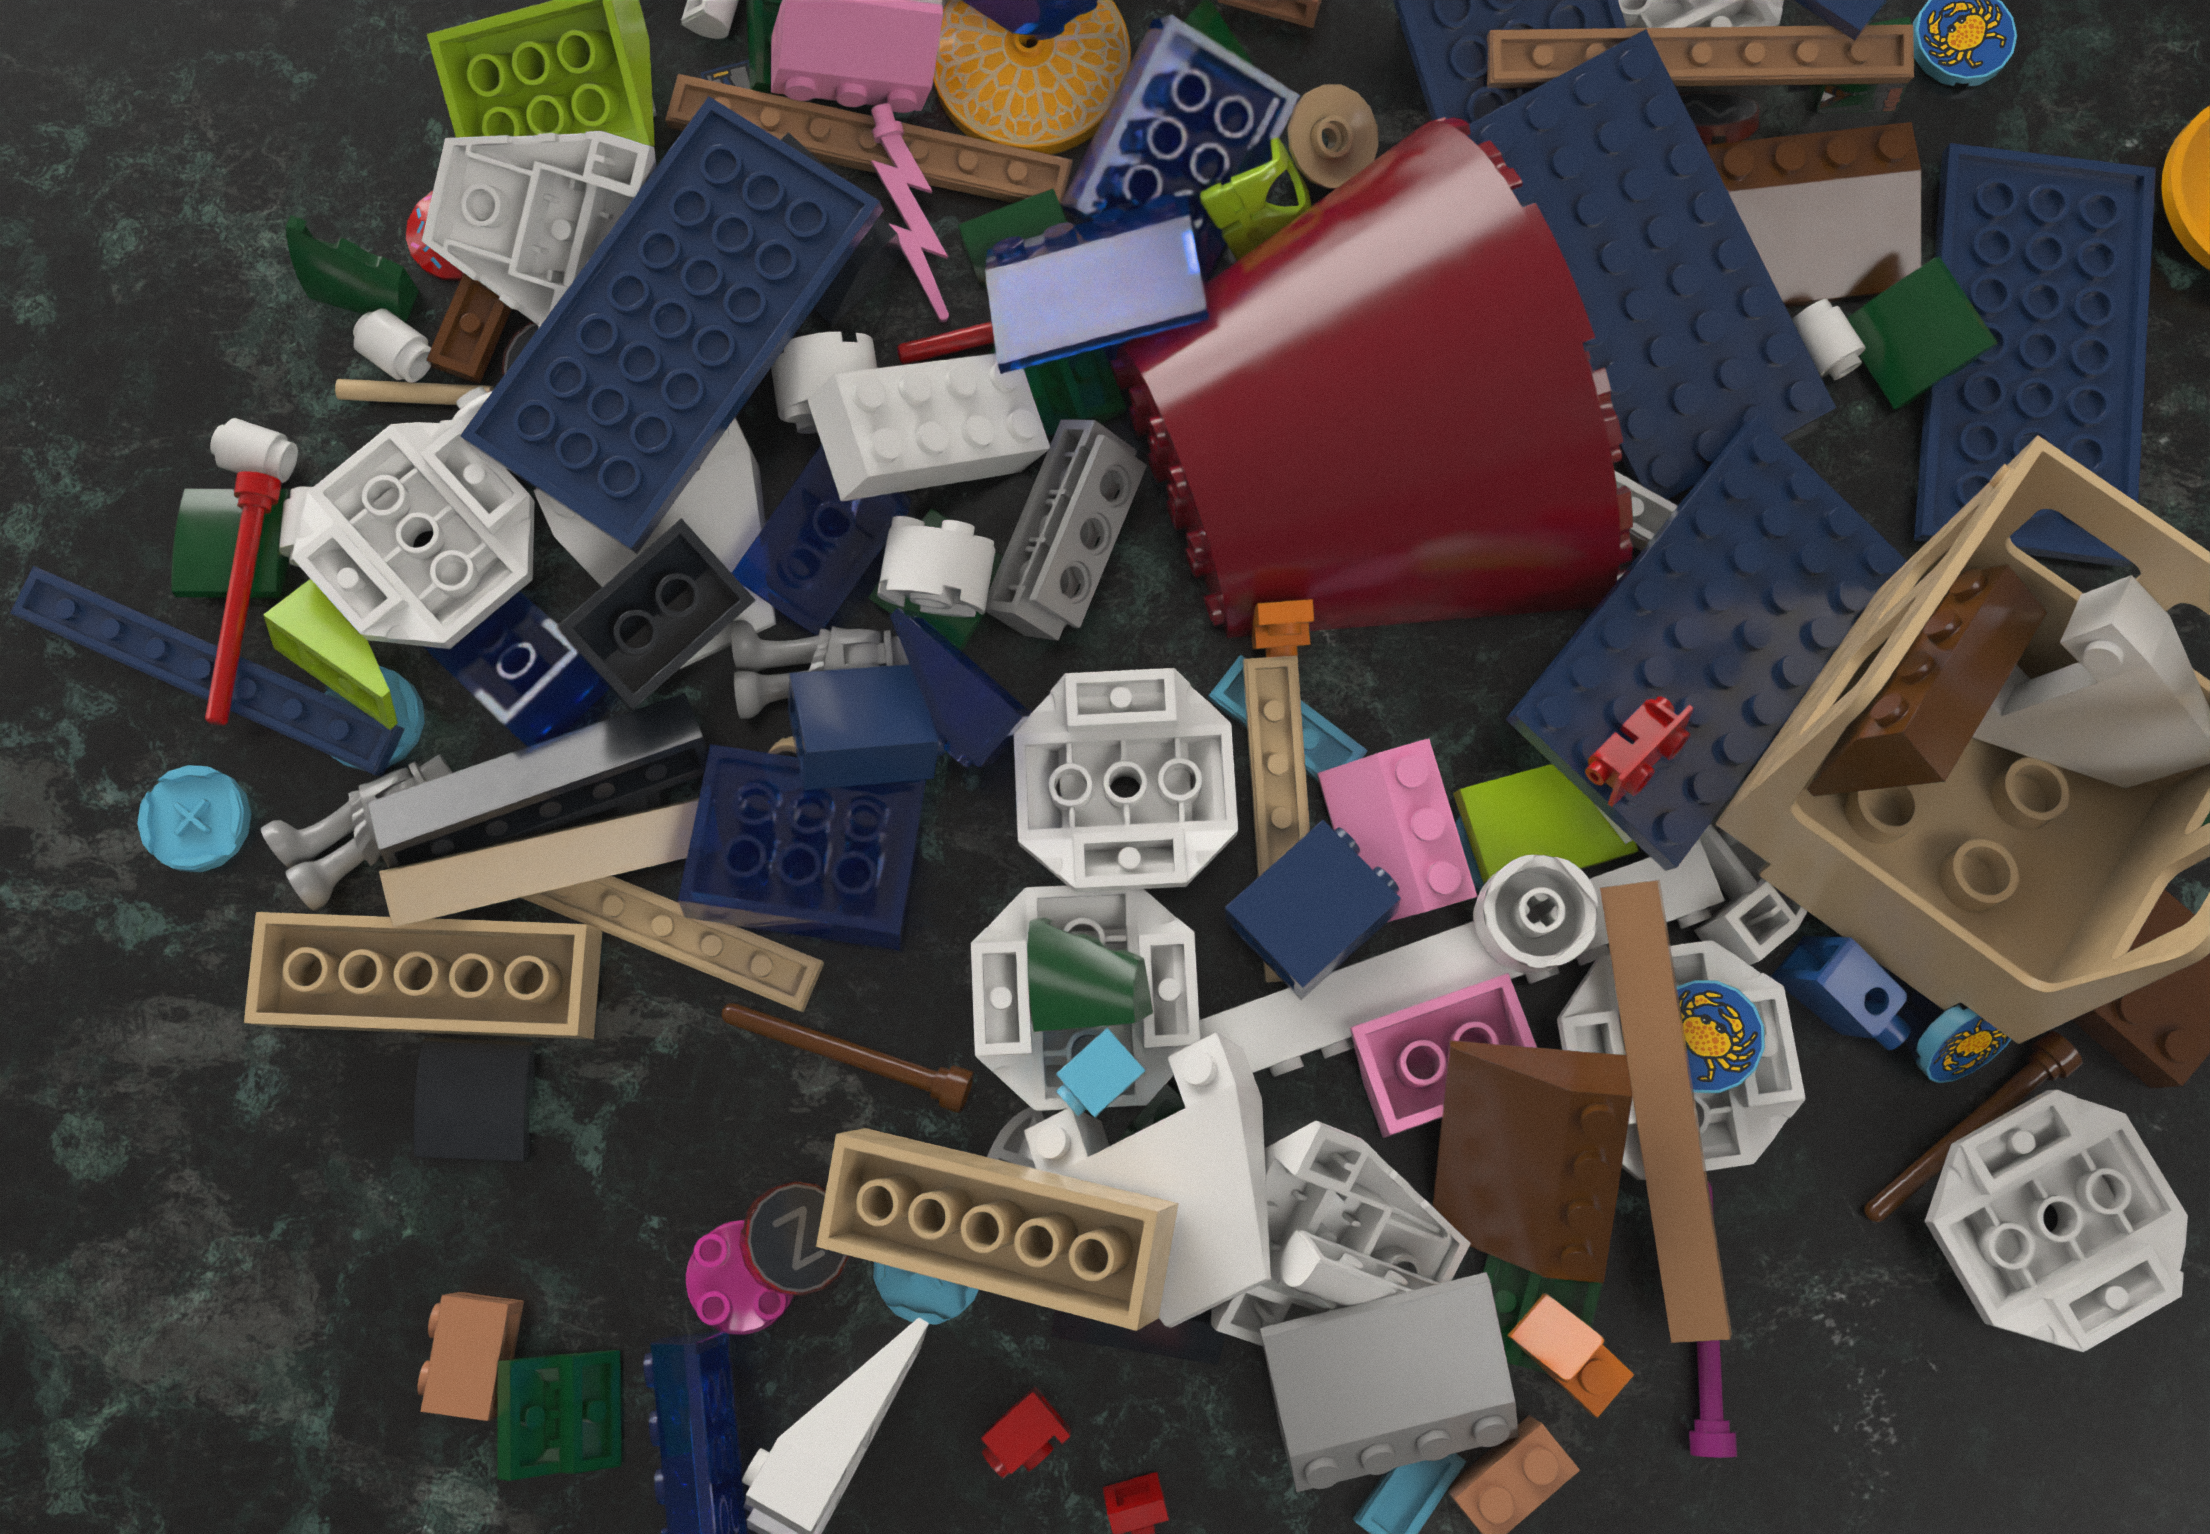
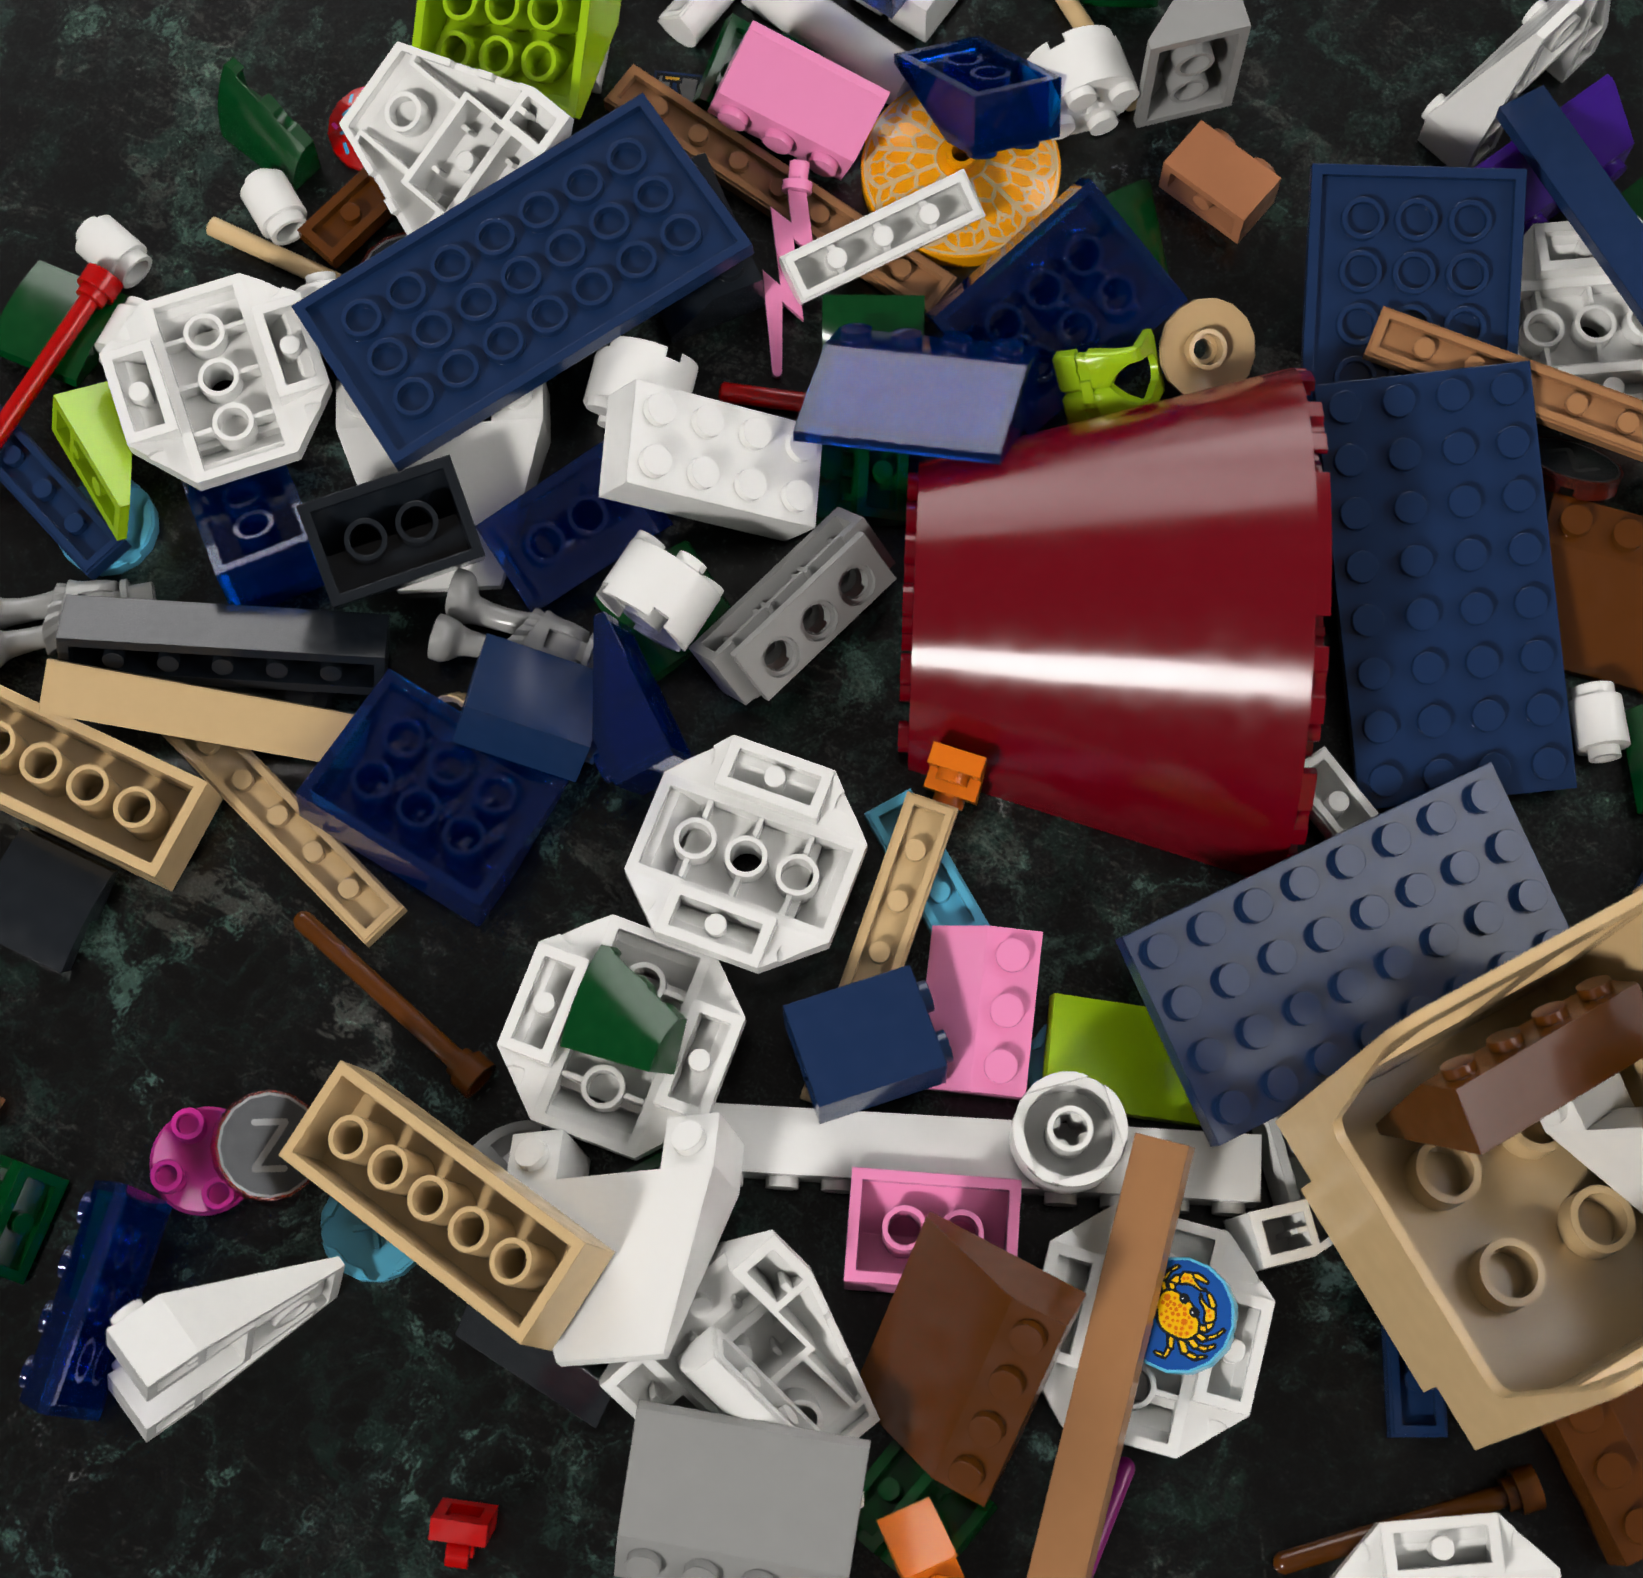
camera: 25 degrees right, 5 degrees down
(990, 149) = (881, 237): none -> white brick
(1023, 1434) = (391, 1412): red brick -> none
(1098, 1075) = (599, 1109): medium azure brick -> none
(1629, 766) = (1247, 1011): red hinge -> none
(1845, 989) = (1331, 1318): blue torso -> none
(1958, 1045) = (1427, 1437): tile -> none

